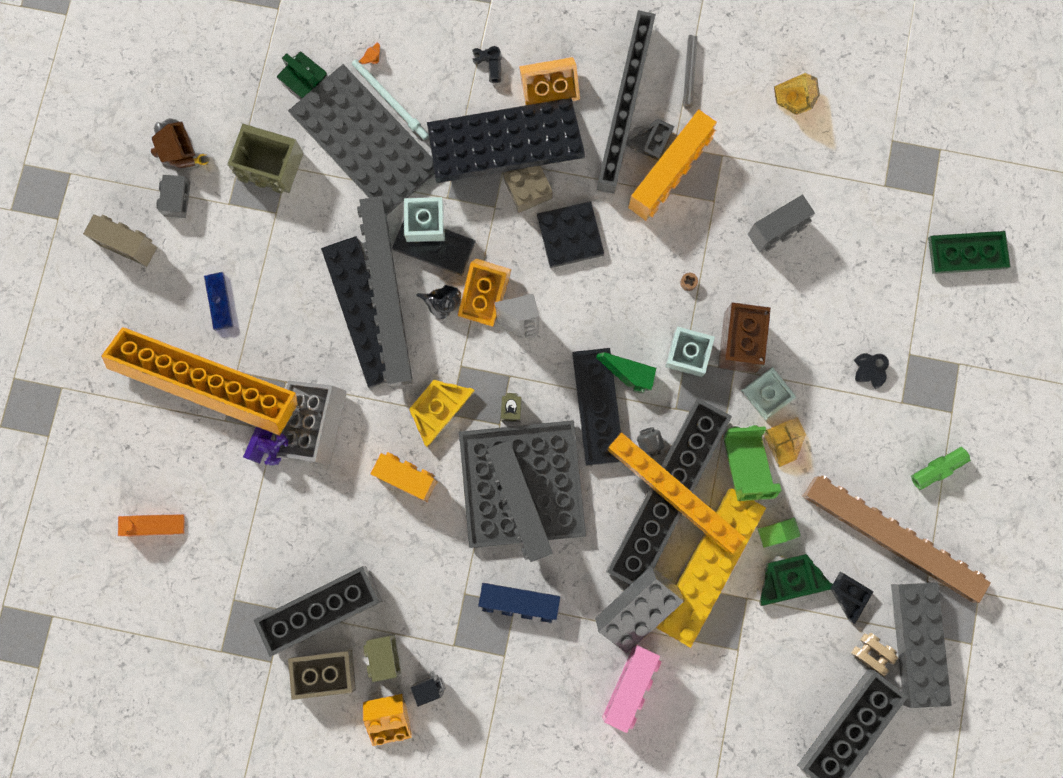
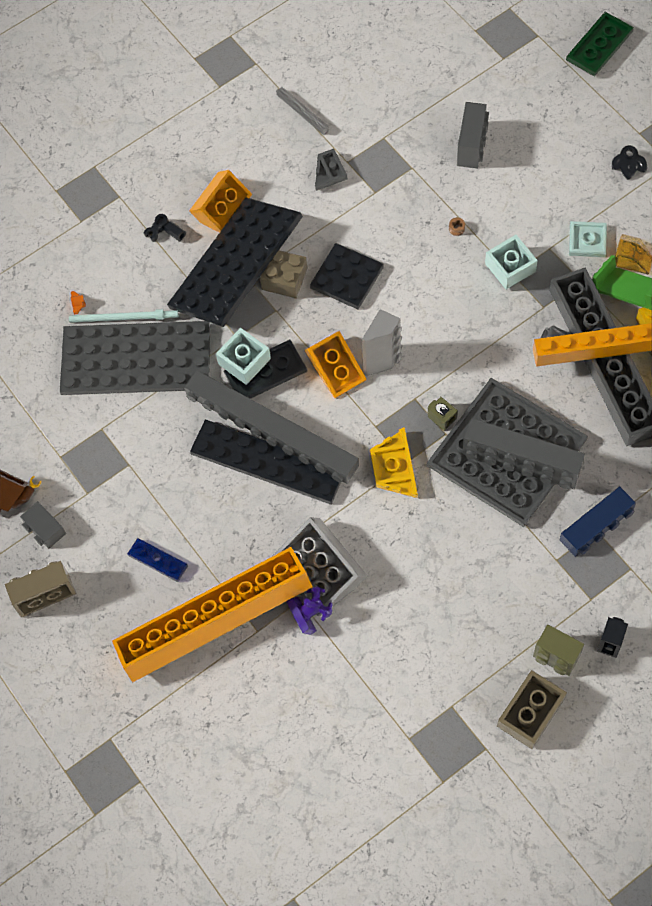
camera: 45 degrees left, 15 degrees down
(150, 525) = (290, 752): orange slope -> none
(265, 158) = (84, 432): olive container -> none
(301, 74) = (41, 361): dark green bracket -> none
(317, 611) = (477, 673): dark grey brick -> none
(386, 719) = (609, 690): light orange slope -> none
(404, 476) = (428, 524): light orange brick -> none
(442, 300) = (315, 396): black hair -> none
(596, 406) = (494, 354): black plate -> none
(626, 102) = (287, 164): dark grey brick -> none
(630, 372) = (489, 311): green slope -> none
(673, 165) = (363, 169): light orange brick -> none
(744, 337) = (534, 217): reddish brown container -> none
(798, 93) = (386, 58): clear yellow slope -> none

